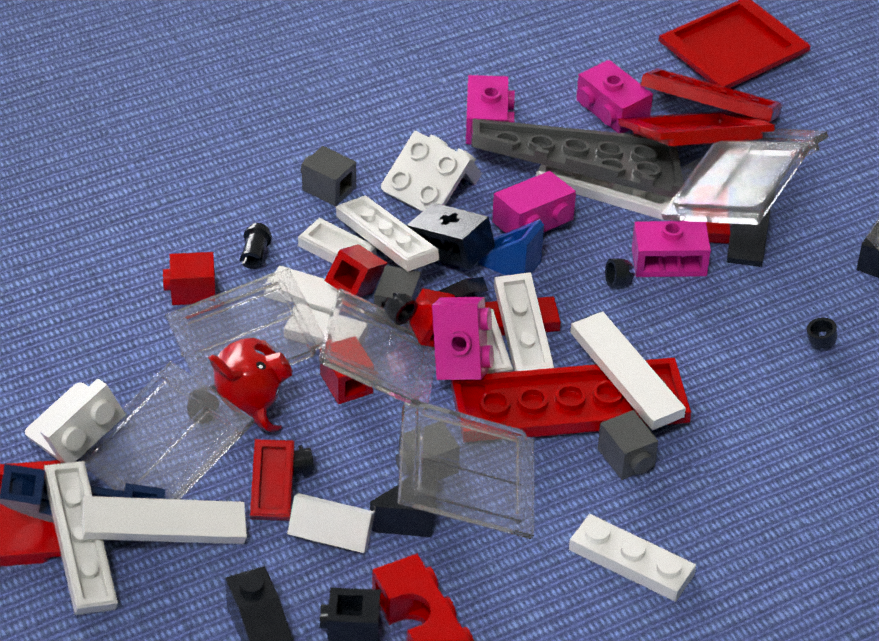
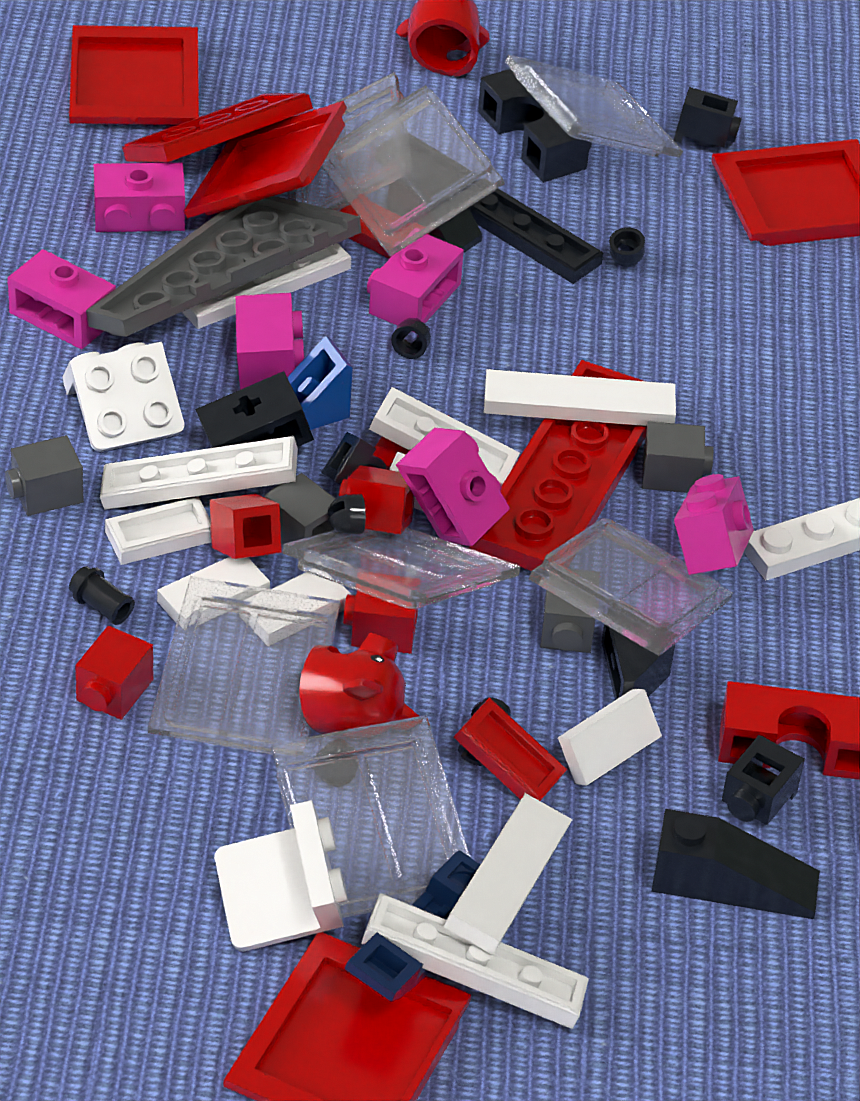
camera: 60 degrees left, 0 degrees up
(560, 483) = (714, 524): none -> dark pink brick
(794, 256) = (536, 236): none -> black tile

